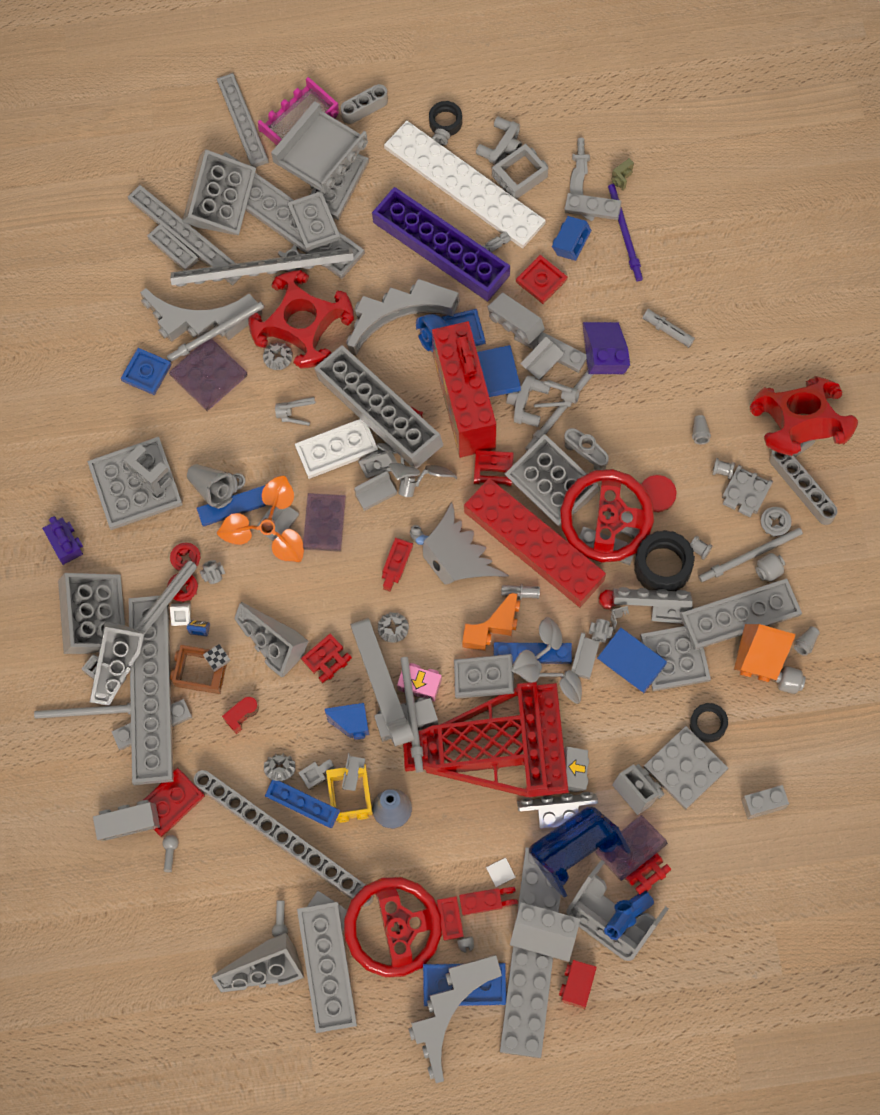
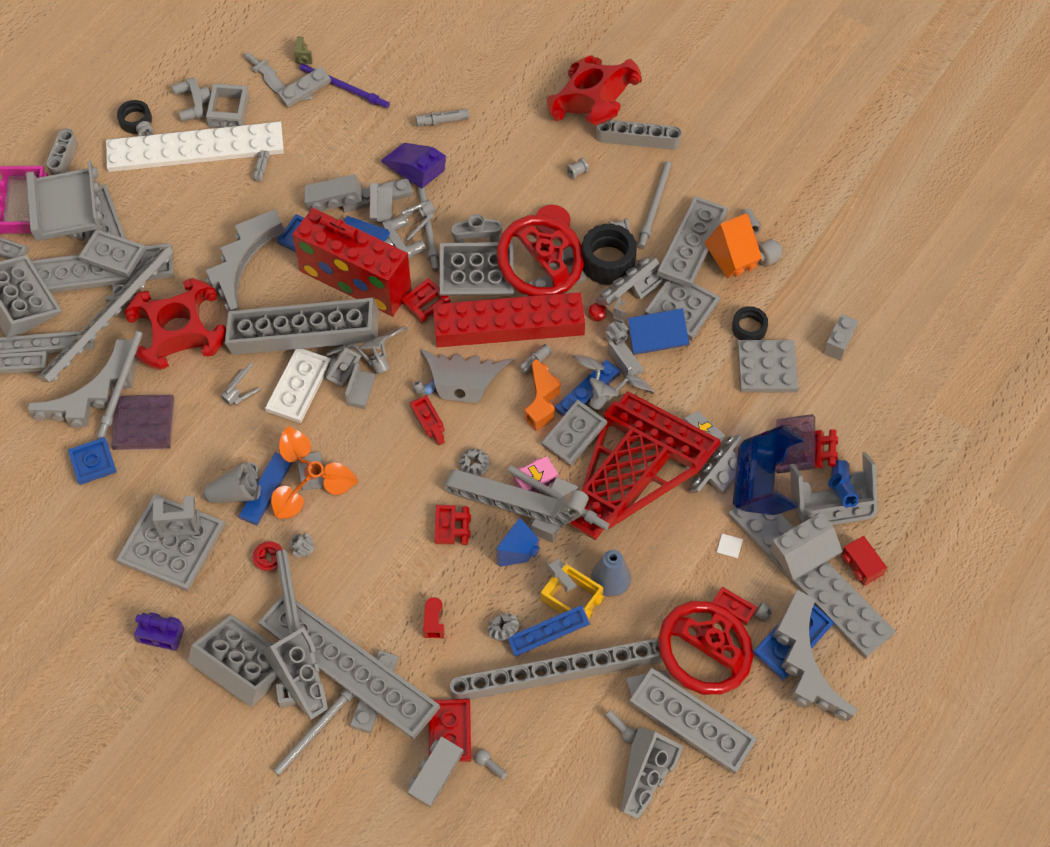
camera: 50 degrees left, 10 degrees down
(176, 674) = (374, 595): dark orange window -> none
(180, 614) = (309, 597): white slope -> none
(191, 589) = (298, 574): red gear -> none
(198, 628) = (334, 593): blue slope -> none
(216, 657) = (375, 594): tile -> none
(276, 641) = (401, 548): light grey wedge -> none
(278, 363) = (191, 365): light grey gear -> none
(314, 774) = (532, 606): light grey plate -> none
(324, 522) = (346, 439): plate -> none
(426, 324) = (281, 252): blue cylinder -> none
(441, 244) = (223, 193): dark purple brick -> none
(486, 901) = (743, 571): red hinge -> none
(541, 279) = (320, 158): red plate -> none
(571, 238) = (313, 116): blue brick -> none
(637, 788) = (755, 405): light grey brick -> none
(701, 432) = (536, 159): light grey cone -> none
(746, 491) = (607, 170): light grey plate -> none
(770, 567) = (676, 199): light grey head -> none
(774, 513) = (652, 167): light grey gear -> none

